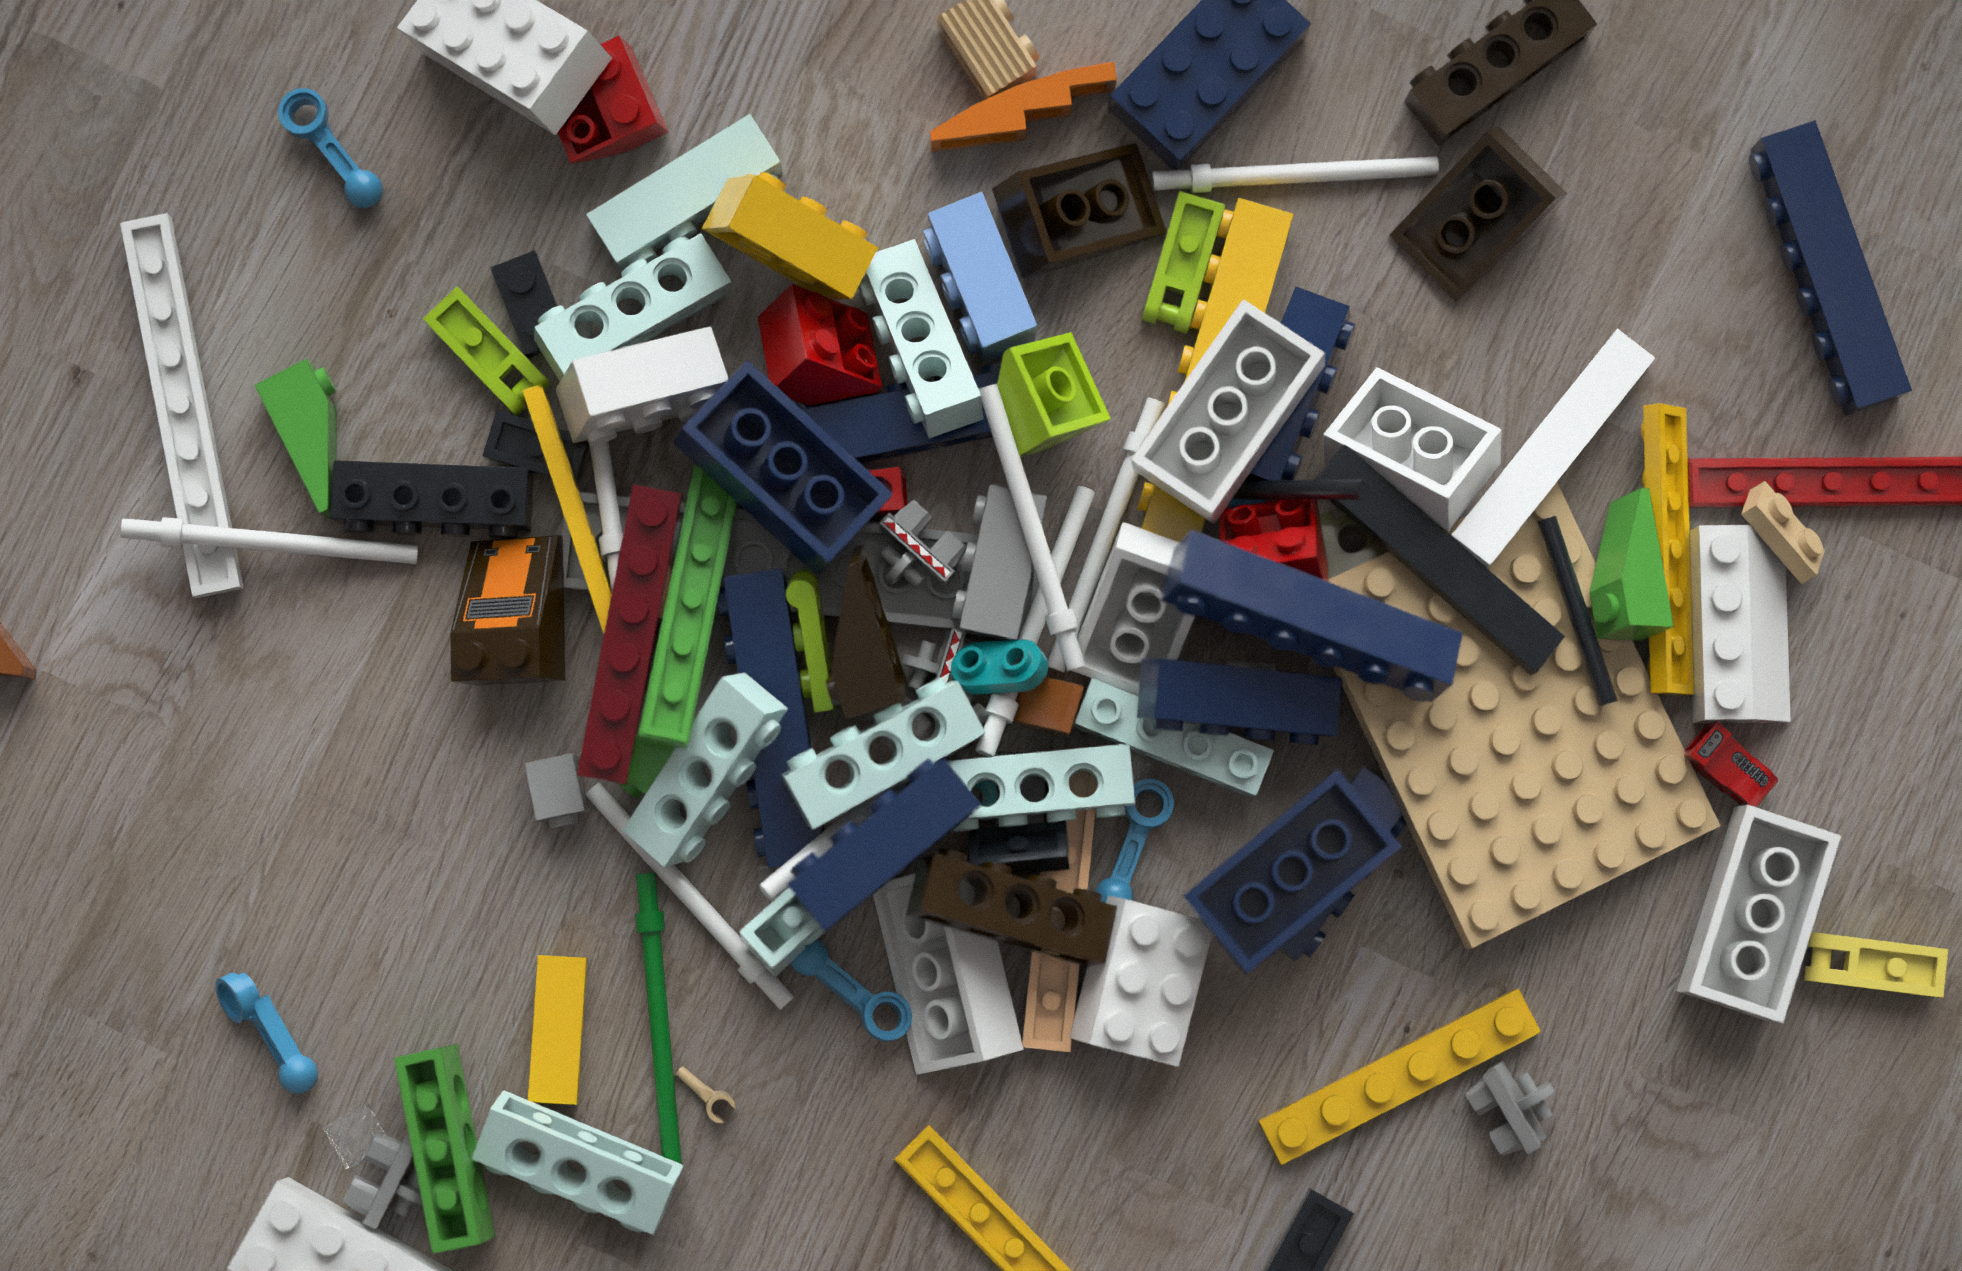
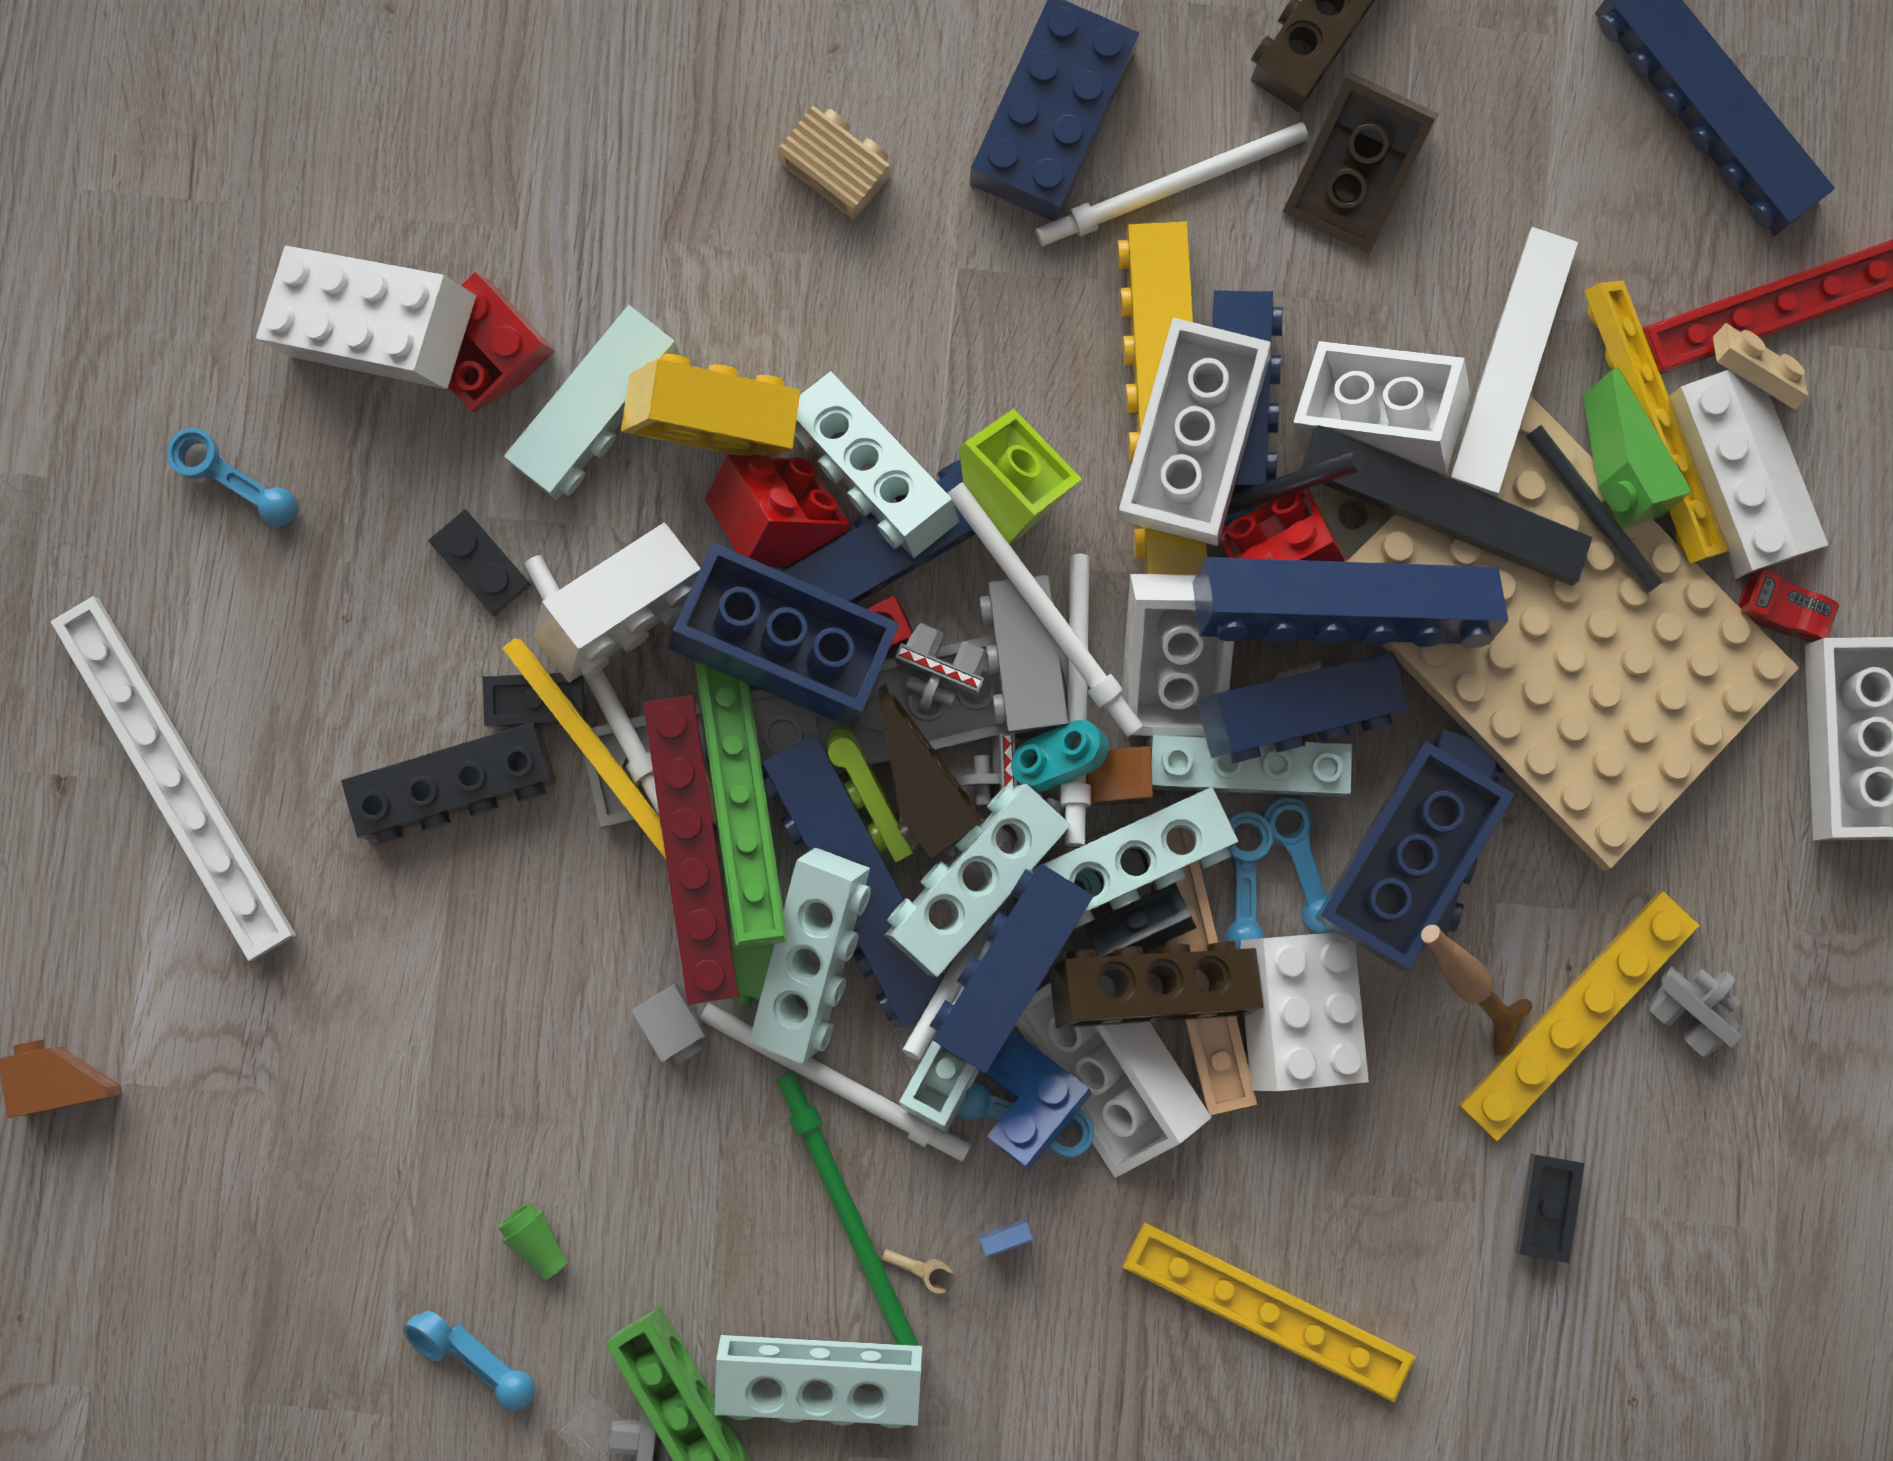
camera: 20 degrees left, 0 degrees up
(173, 533) = (208, 904): white bar -> none
(307, 424) = (302, 754): bright green slope -> none
(362, 943) = (532, 1240): none -> bright green cone
(484, 348) = (449, 621): lime plate -> none
(510, 613) = (565, 868): dark brown slope -> none
(557, 1029) = (753, 1257): yellow tile -> none
(685, 258) = (616, 467): light aqua brick -> none
(795, 1093) = (1005, 1238): none -> medium blue tile
(875, 978) = (1044, 1102): none -> blue plate
(979, 278) = (907, 387): light blue brick -> none
(1005, 114) = (876, 221): orange slope -> none
(1078, 209) = (976, 289): dark brown slope -> none
(1109, 525) = (1113, 576): white bar -> none
(1184, 260) = (1095, 303): lime plate -> none
(1192, 835) = (1300, 854): none -> dark azure piece
(1307, 1010) = (1475, 985): none -> medium nougat piece

